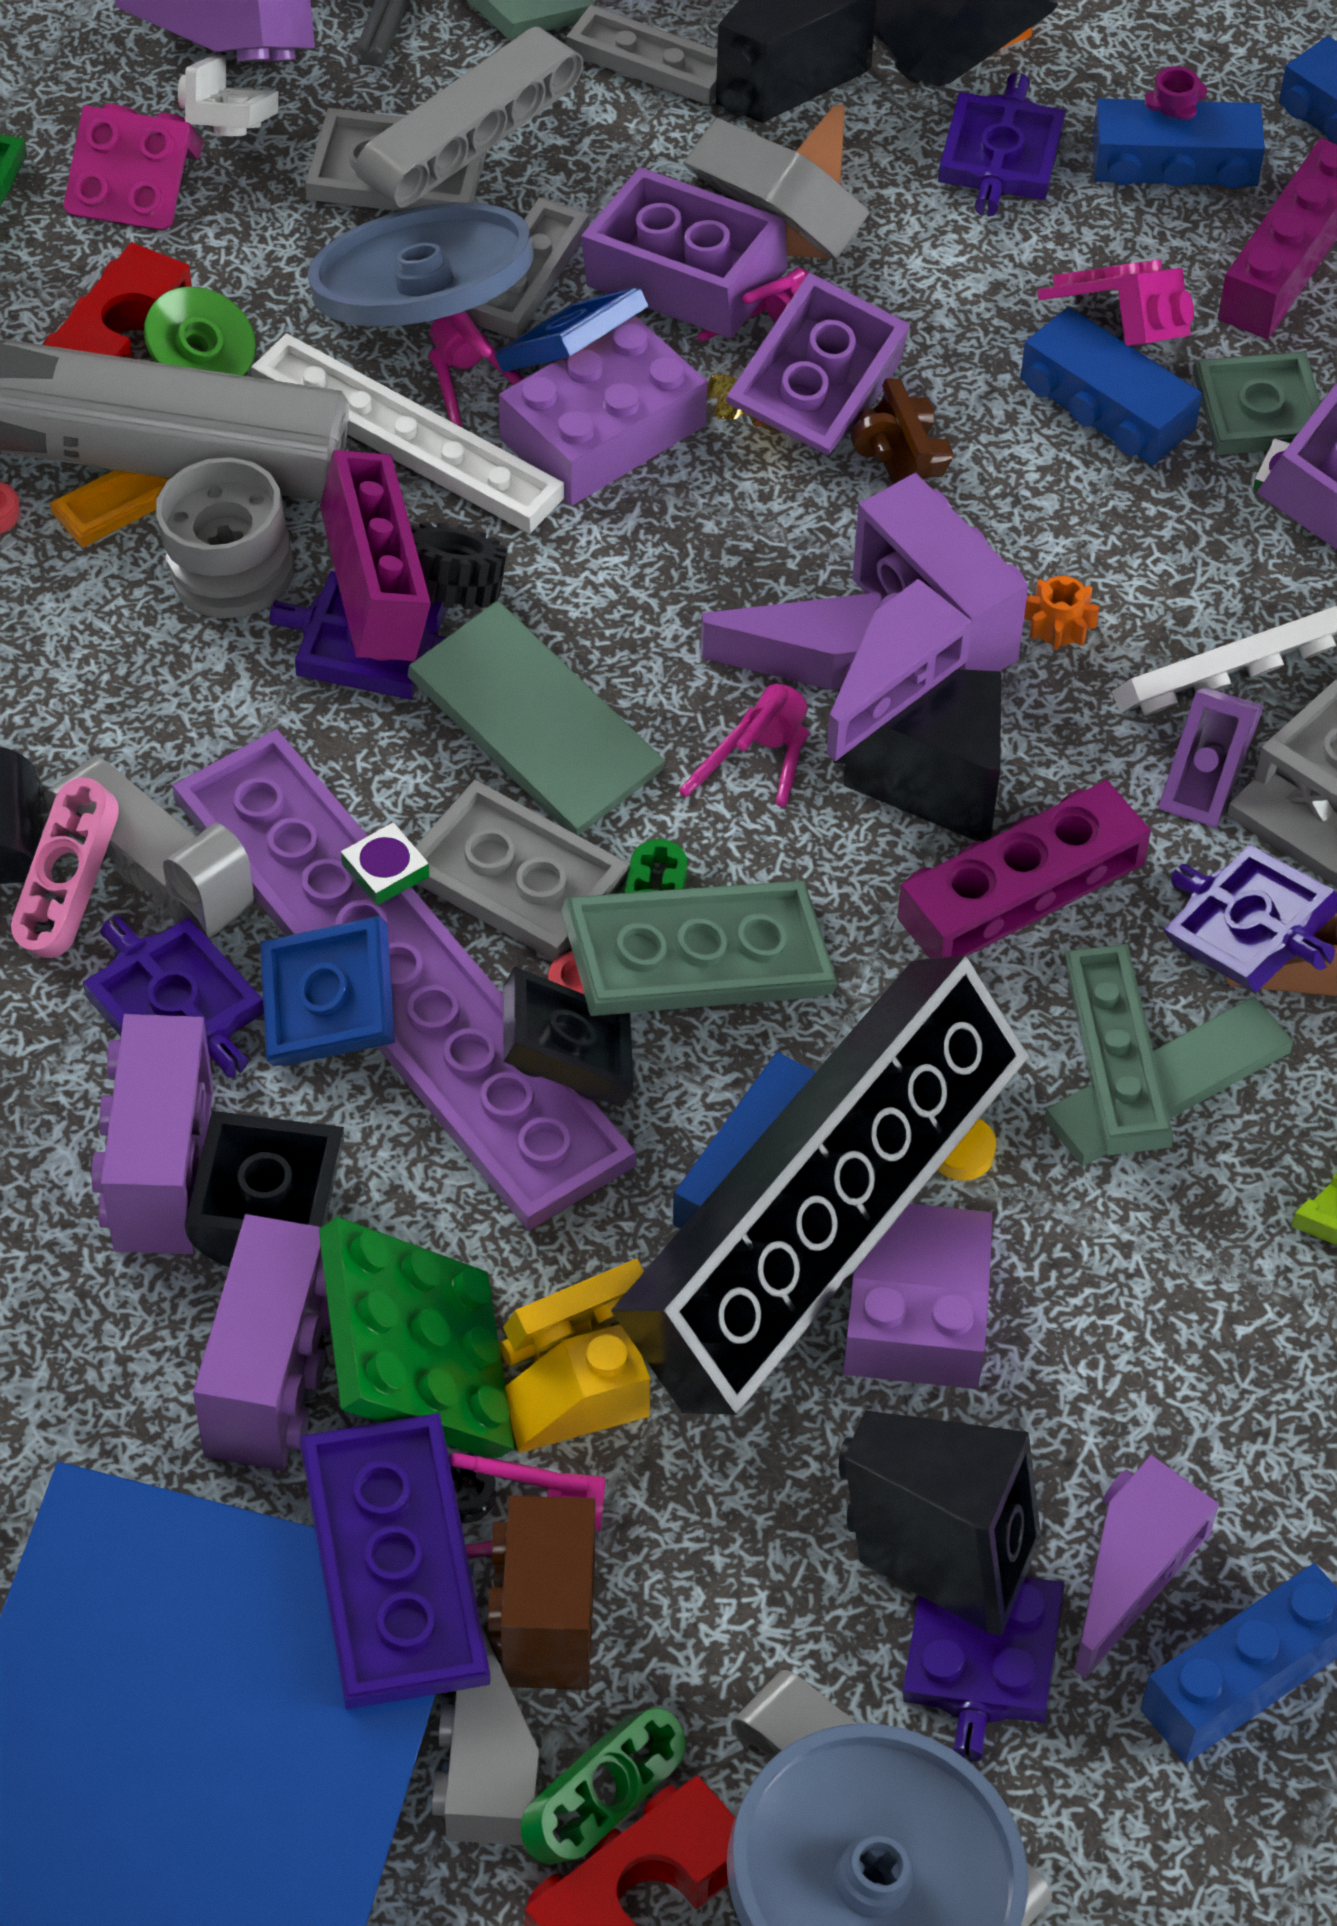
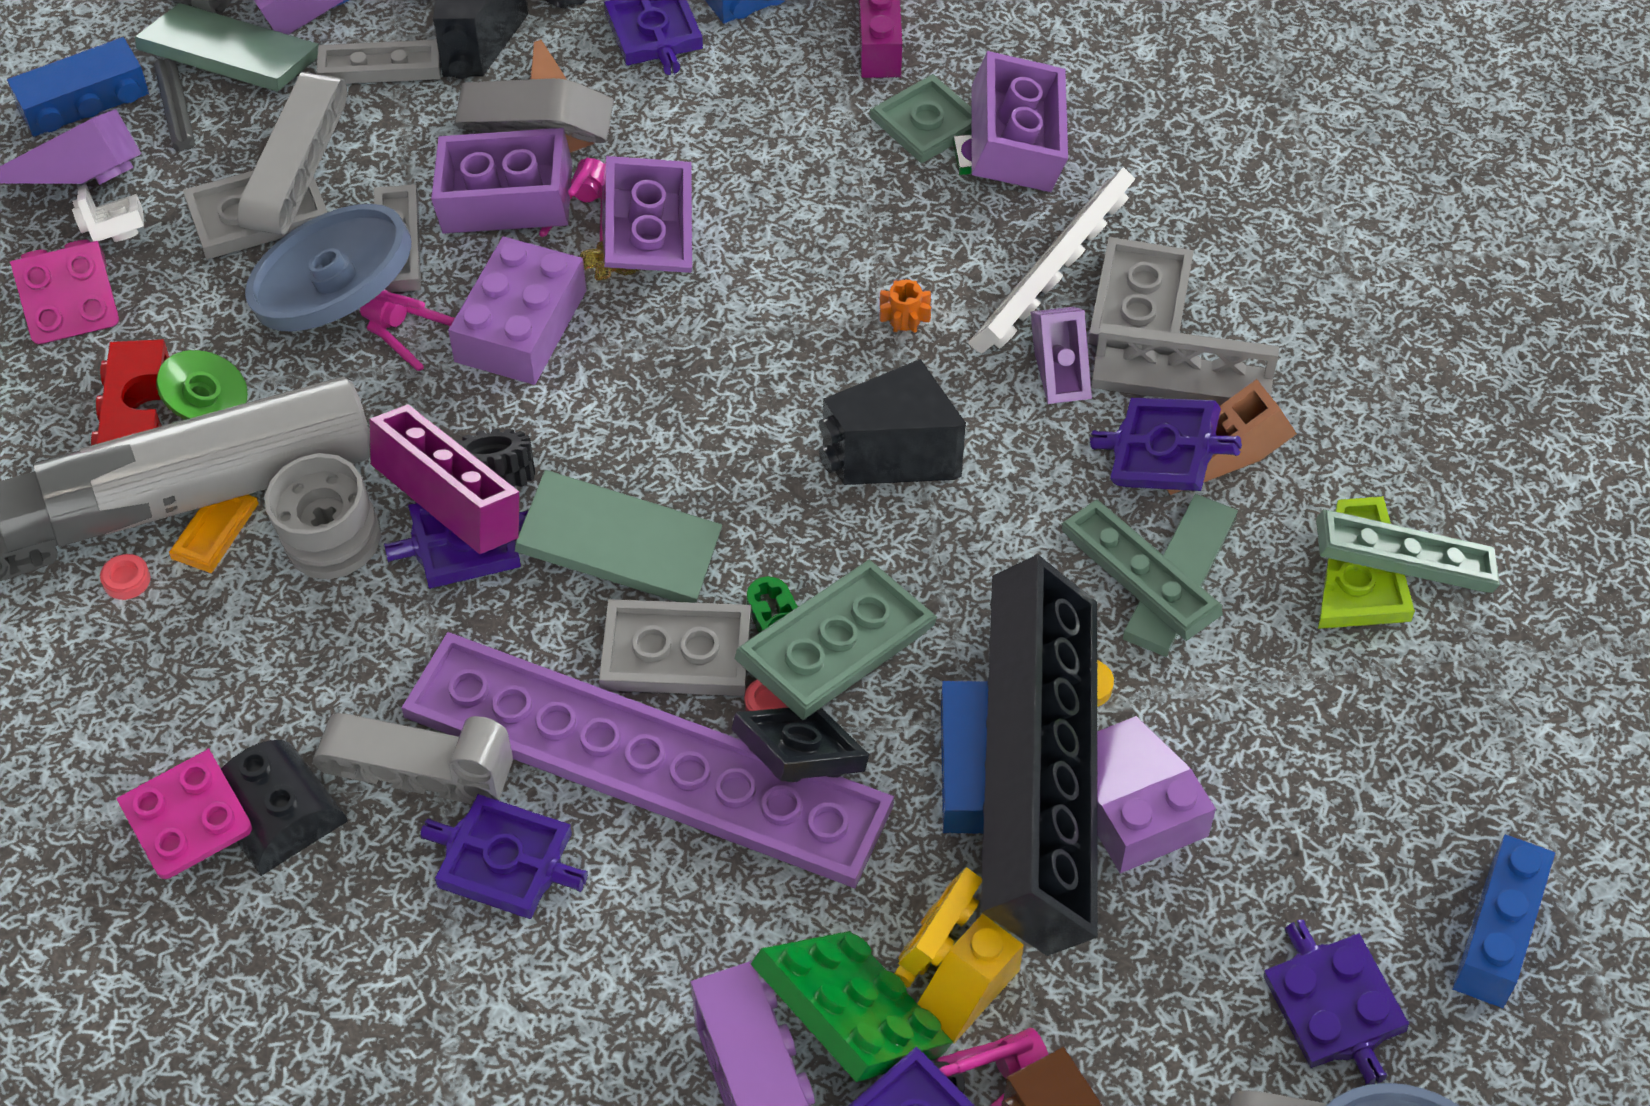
camera: 30 degrees left, 0 degrees up
(54, 843) = (362, 843): bright pink beam -> none
(153, 1131) = (570, 959): medium lavender brick -> none
(261, 1171) = (666, 949): black brick -> none
(327, 992) = (613, 796): blue tile -> none
(385, 864) = (592, 687): tile -> none
(421, 437) = (396, 385): white plate -> none
(571, 329) = (464, 265): blue tile -> none
(770, 723) = (775, 466): dark pink plant -> none
(792, 640) = (761, 401): medium lavender slope -> none
(898, 435) = (723, 240): reddish brown hips -> none
(903, 654) = (858, 376): medium lavender slope -> none
(917, 535) = (823, 320): medium lavender brick -> none
(944, 1510) = (1271, 929): black slope -> none
(1060, 856) = (1002, 486): magenta brick -> none
(1110, 386) = (832, 147): blue brick -> none
(1146, 1538) = (1385, 889): medium lavender slope -> none
(1150, 298) = (831, 82): dark pink bracket -> none

